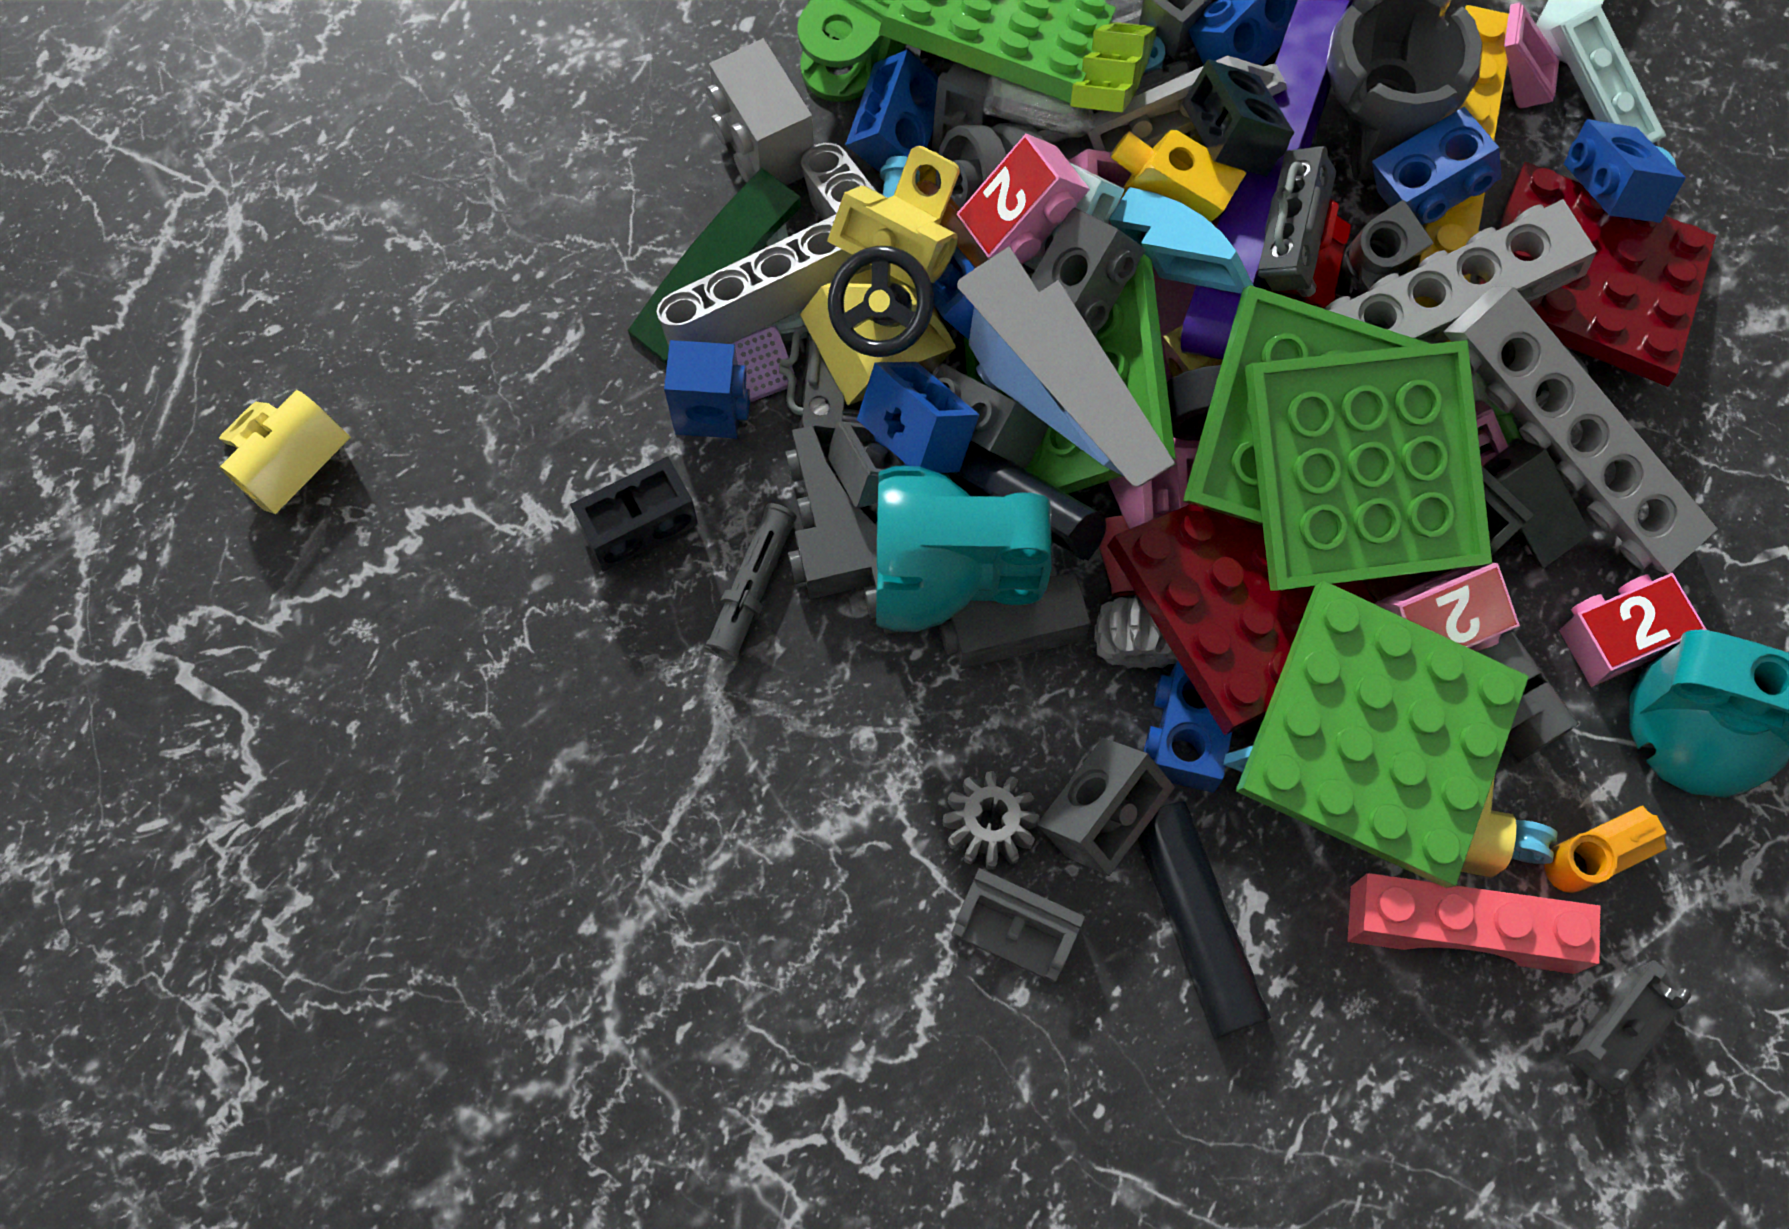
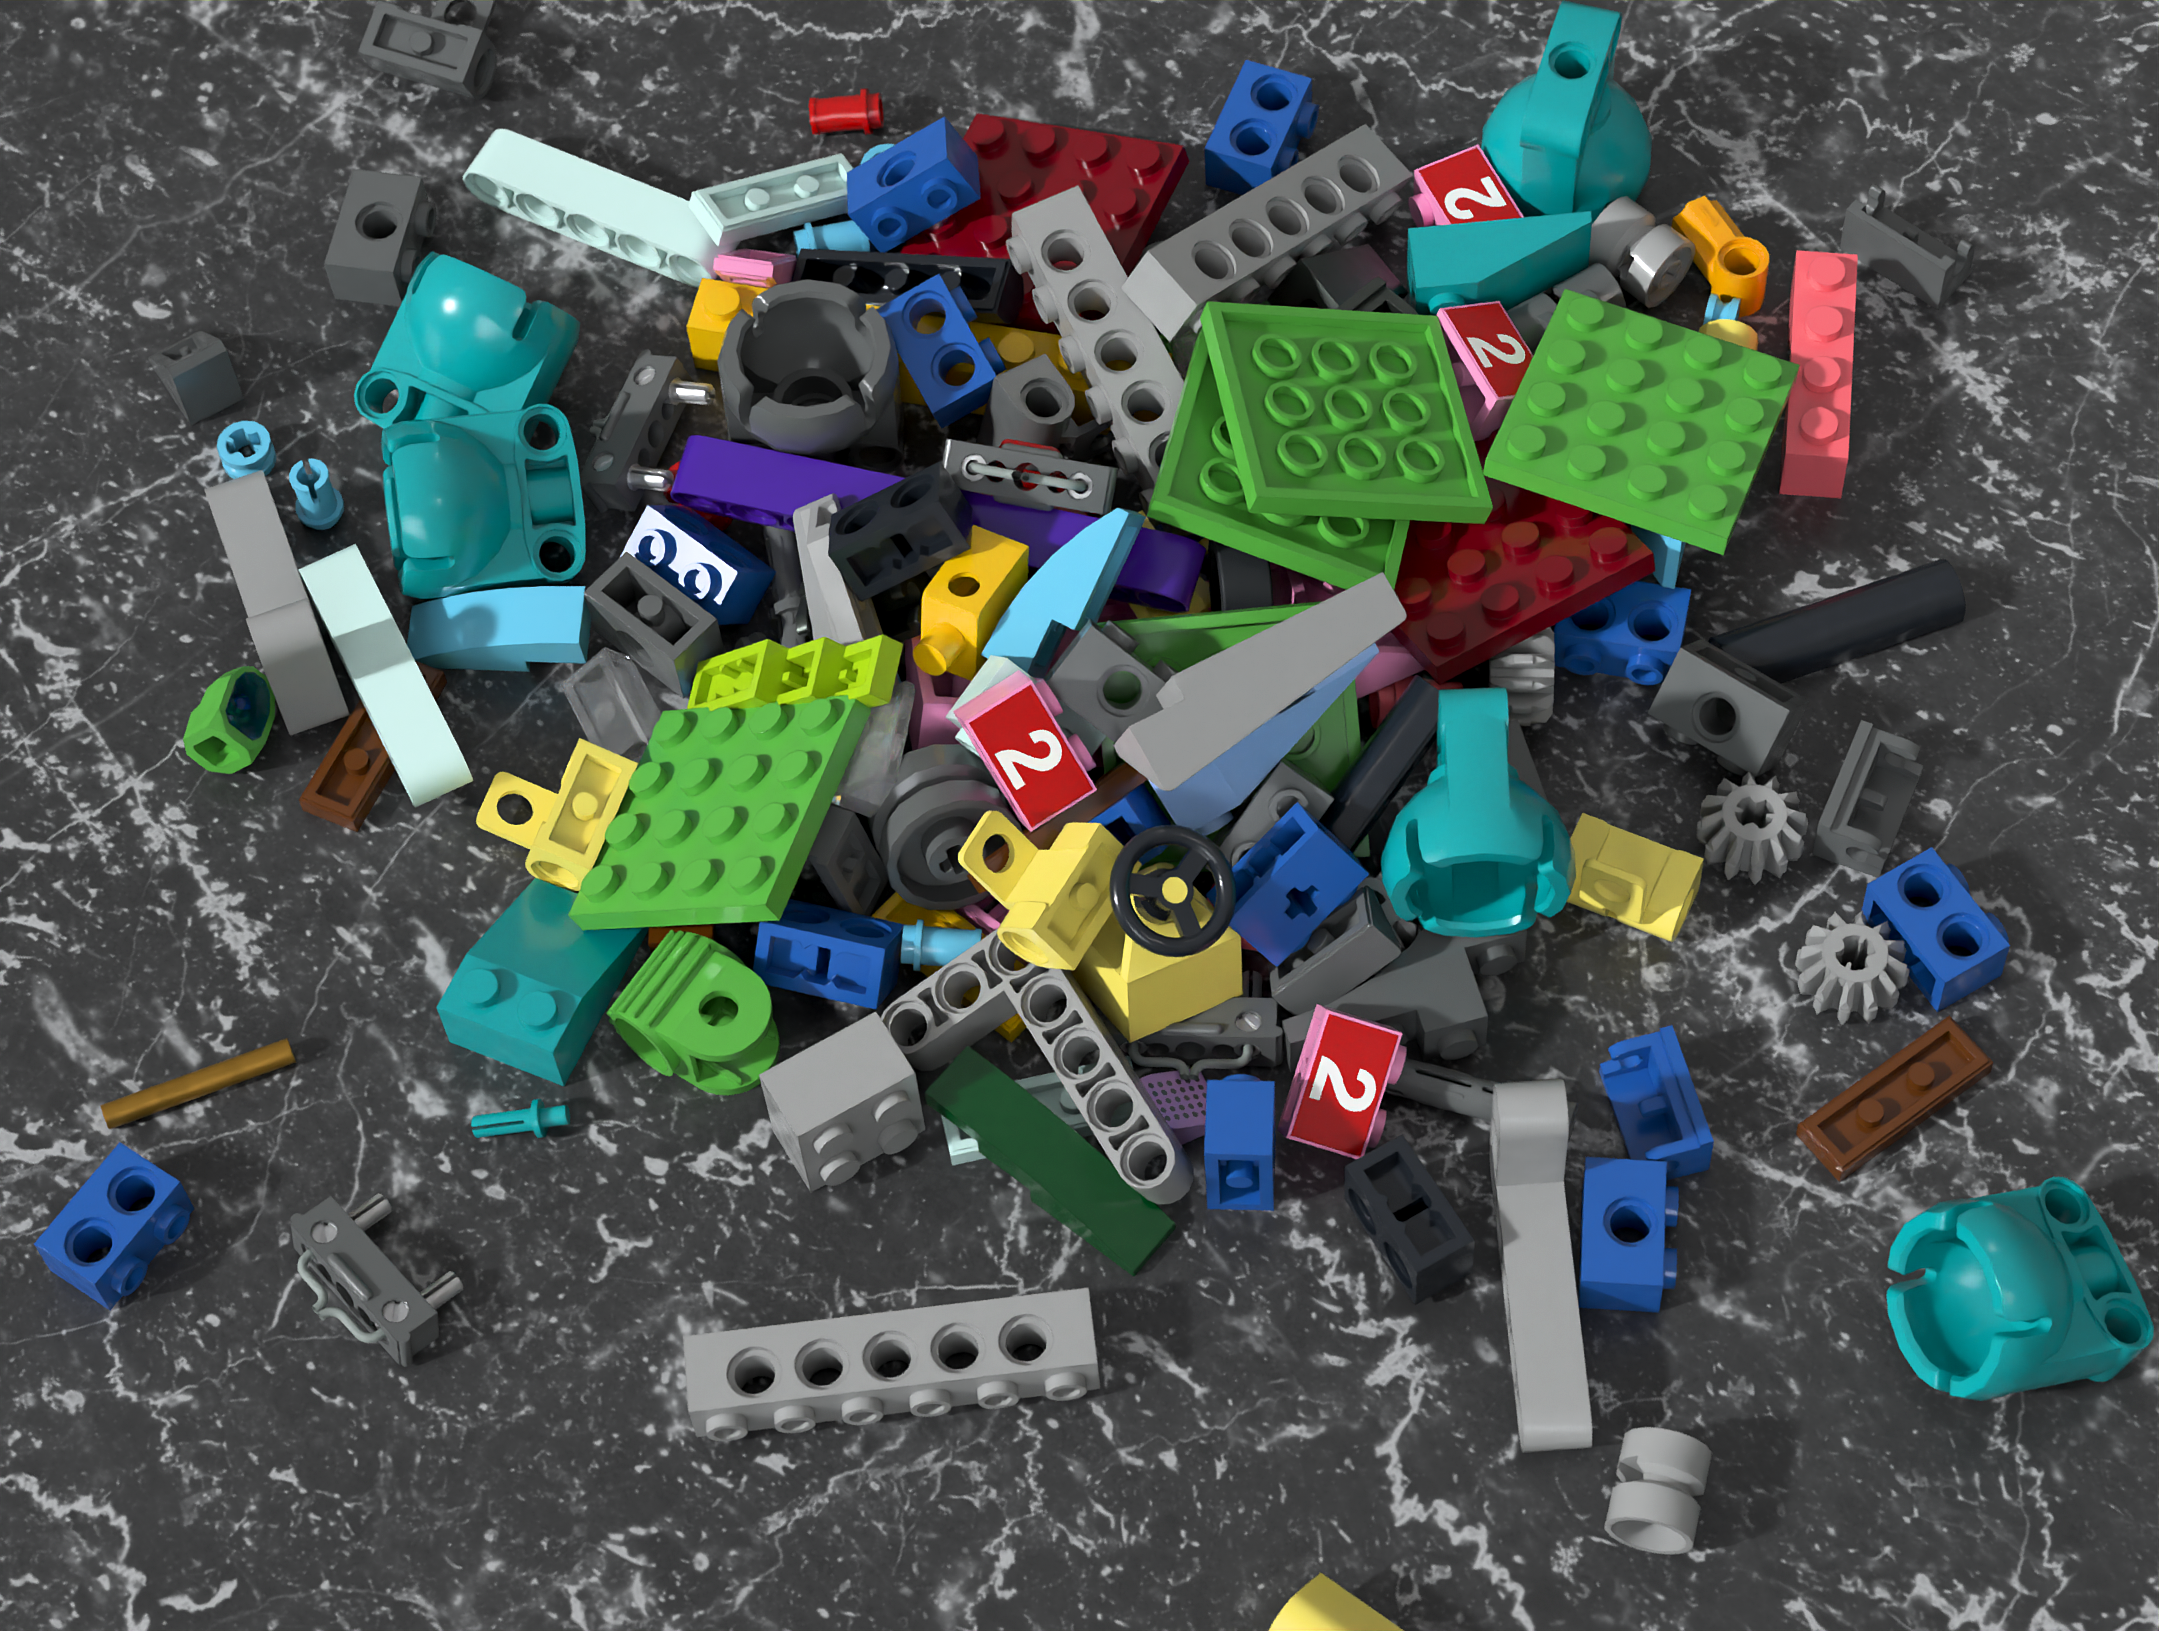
camera: 85 degrees left, 10 degrees down
(378, 686) = (1655, 1501): none -> light grey wheel
(513, 993) = (2015, 1293): none -> teal piece
(572, 276) = (860, 1344): none -> light grey brick
(589, 664) = (1620, 1272): none -> blue brick
(647, 613) = (1537, 1264): none -> light grey beam
(730, 724) = (1657, 1103): none -> blue hinge
(732, 922) = (1894, 1098): none -> reddish brown tile
(753, 464) = (1342, 1083): none -> brick
(837, 907) = (1856, 946): none -> light grey gear
(875, 956) = (1928, 930): none -> blue brick
(938, 707) = (1633, 878): none -> light yellow piece
(1522, 145) = (878, 277): none -> black brick
(1561, 623) = (1494, 260): none -> teal slope
(1569, 116) = (836, 236): none -> medium azure pin
(1601, 770) = (1643, 255): none -> light grey wheel
(1709, 148) = (847, 113): none -> red pin
(1717, 445) = (1259, 128): none -> blue brick

